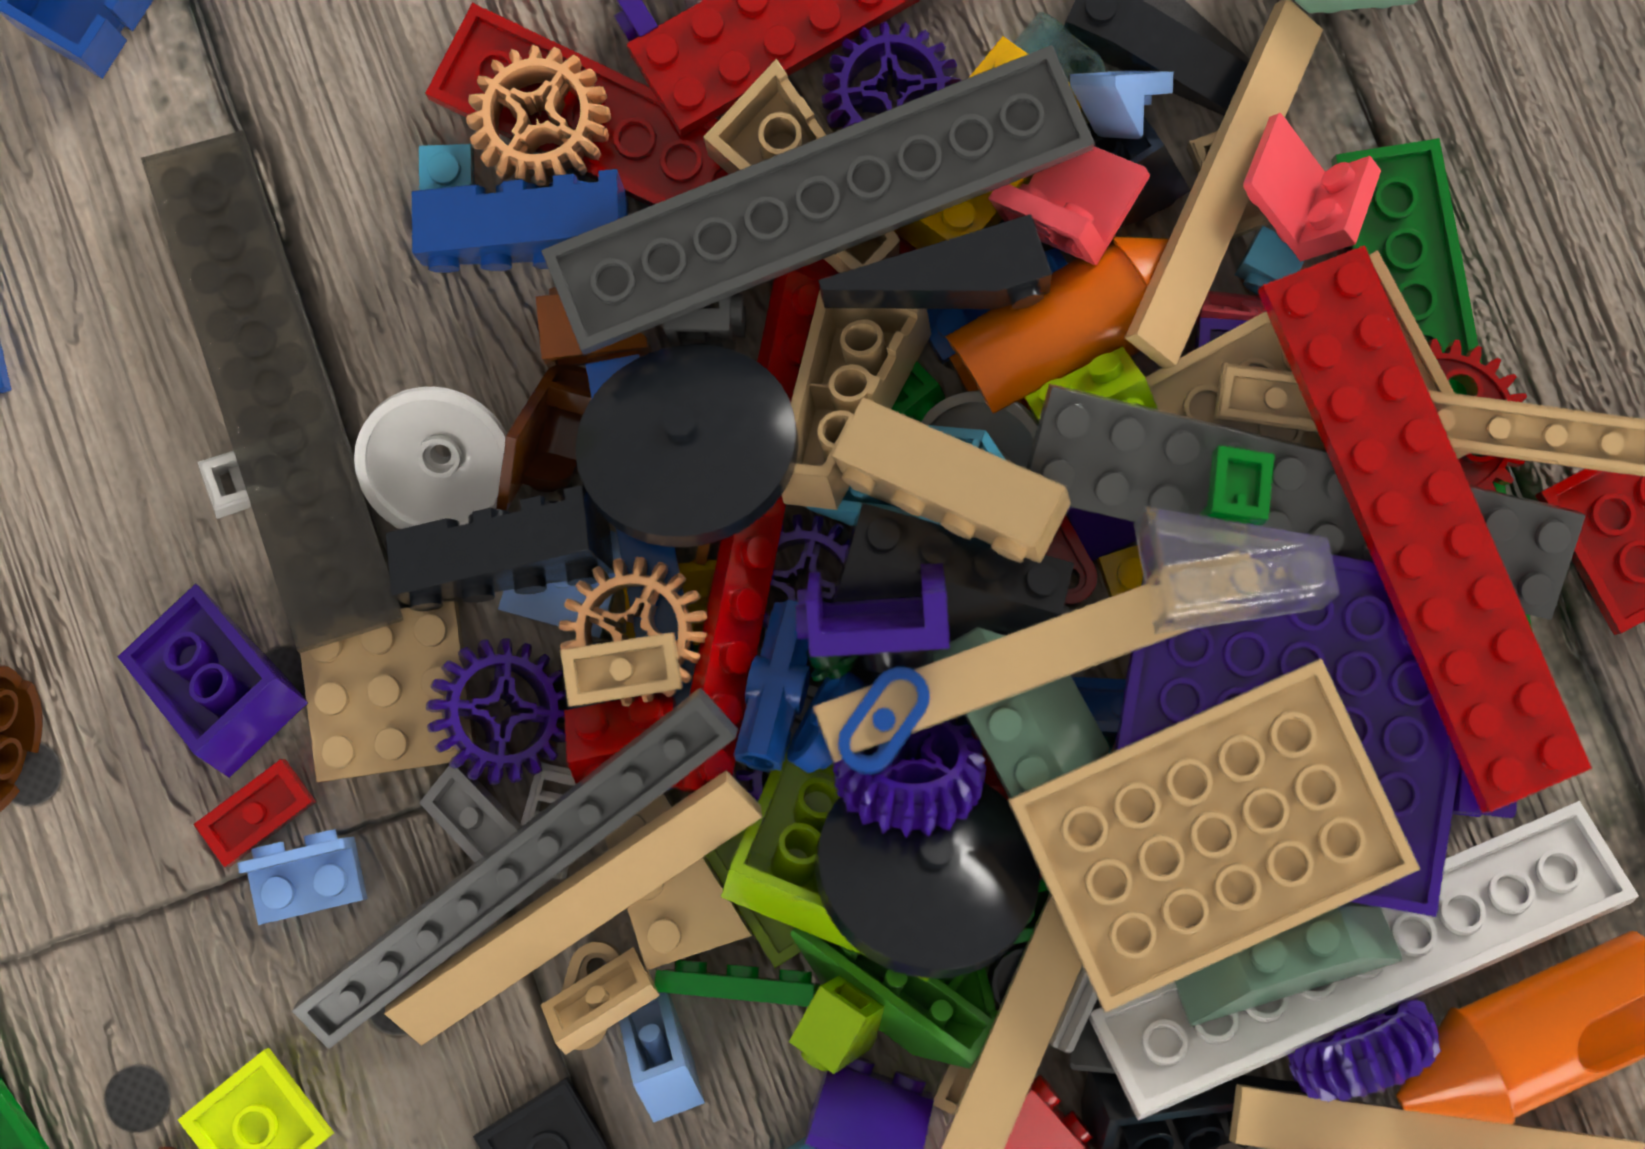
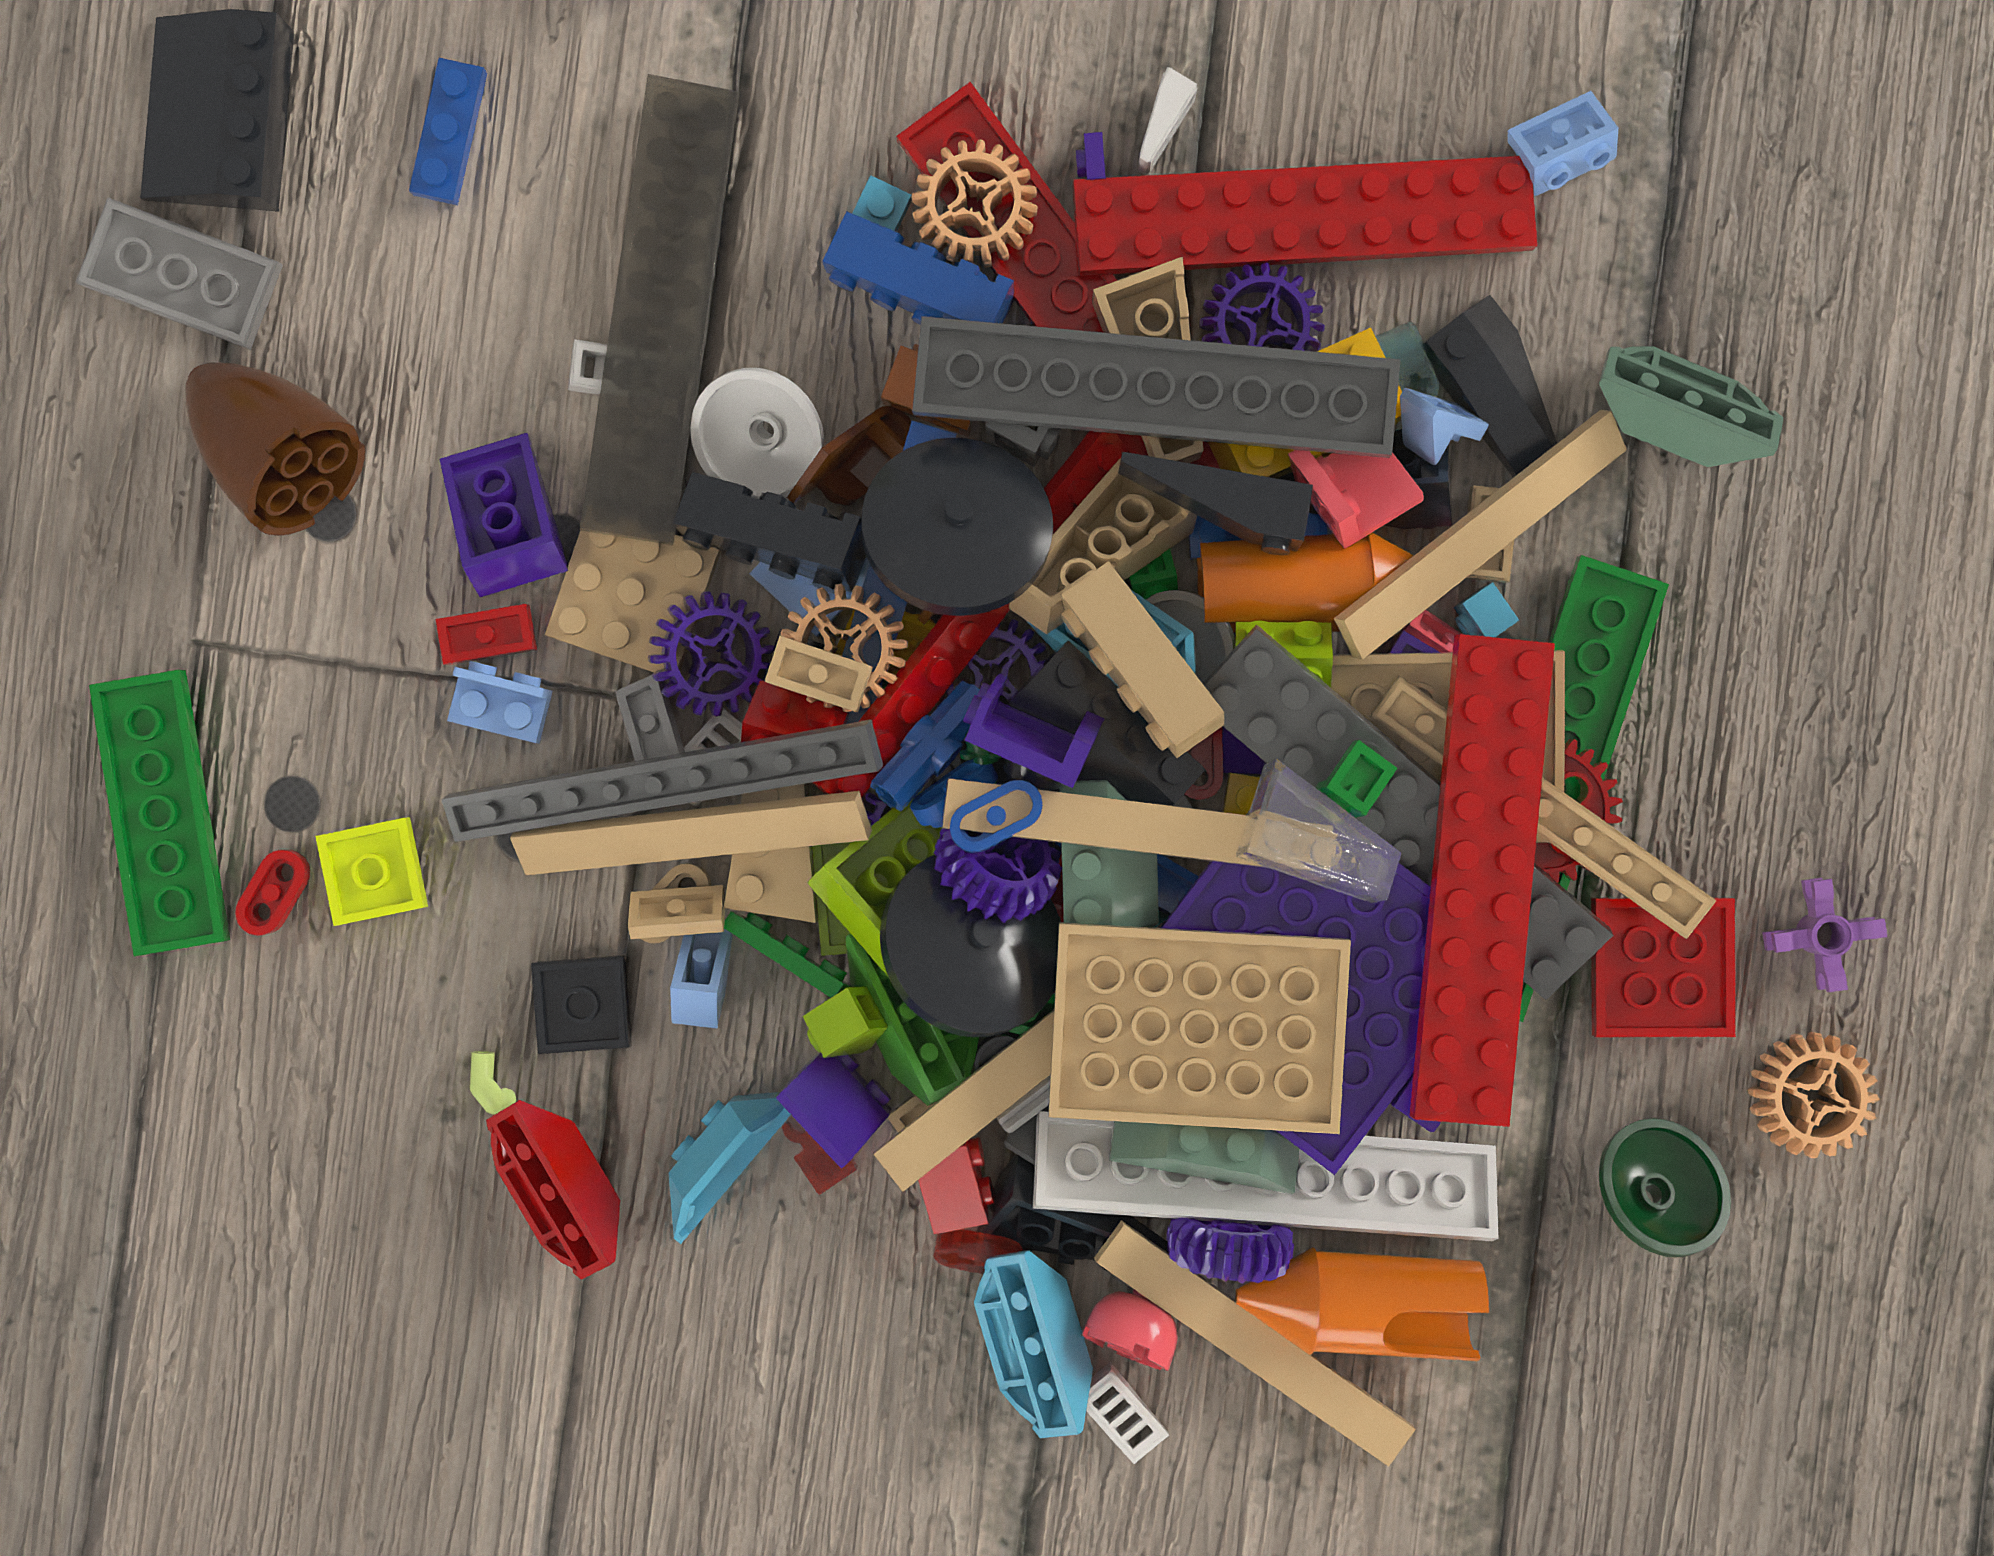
camera: 20 degrees right, 5 degrees up
(1305, 204) = (1532, 577): coral bracket -> none

